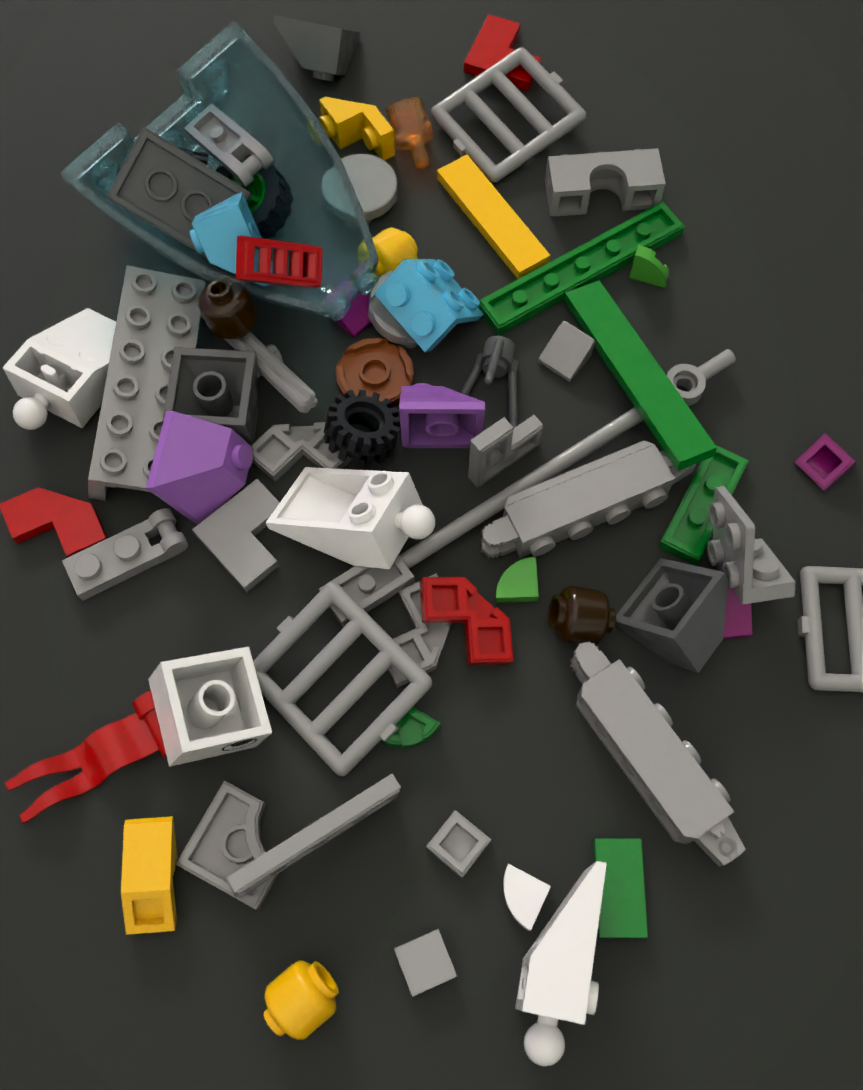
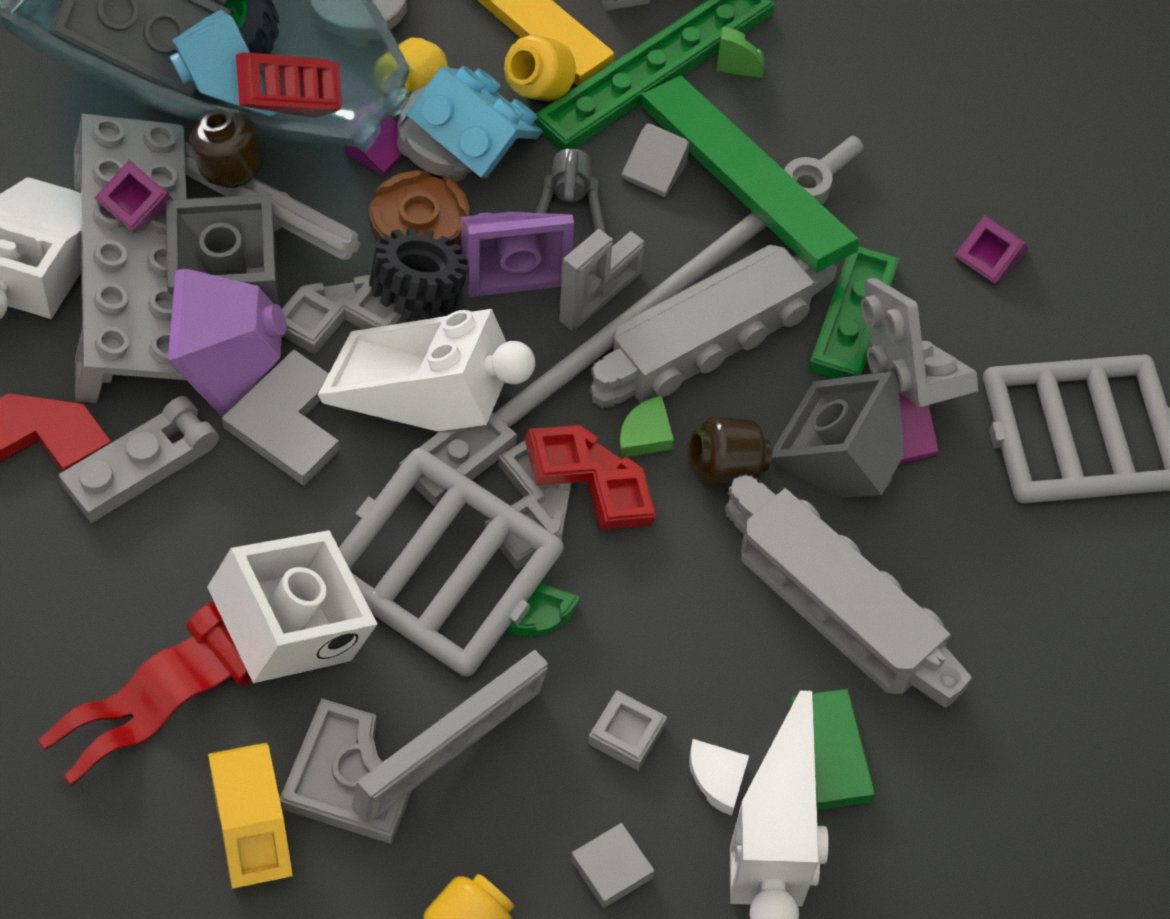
camera: 15 degrees left, 10 degrees down
(150, 341) = (133, 197): none -> magenta slope
(487, 263) = (539, 68): none -> yellow head

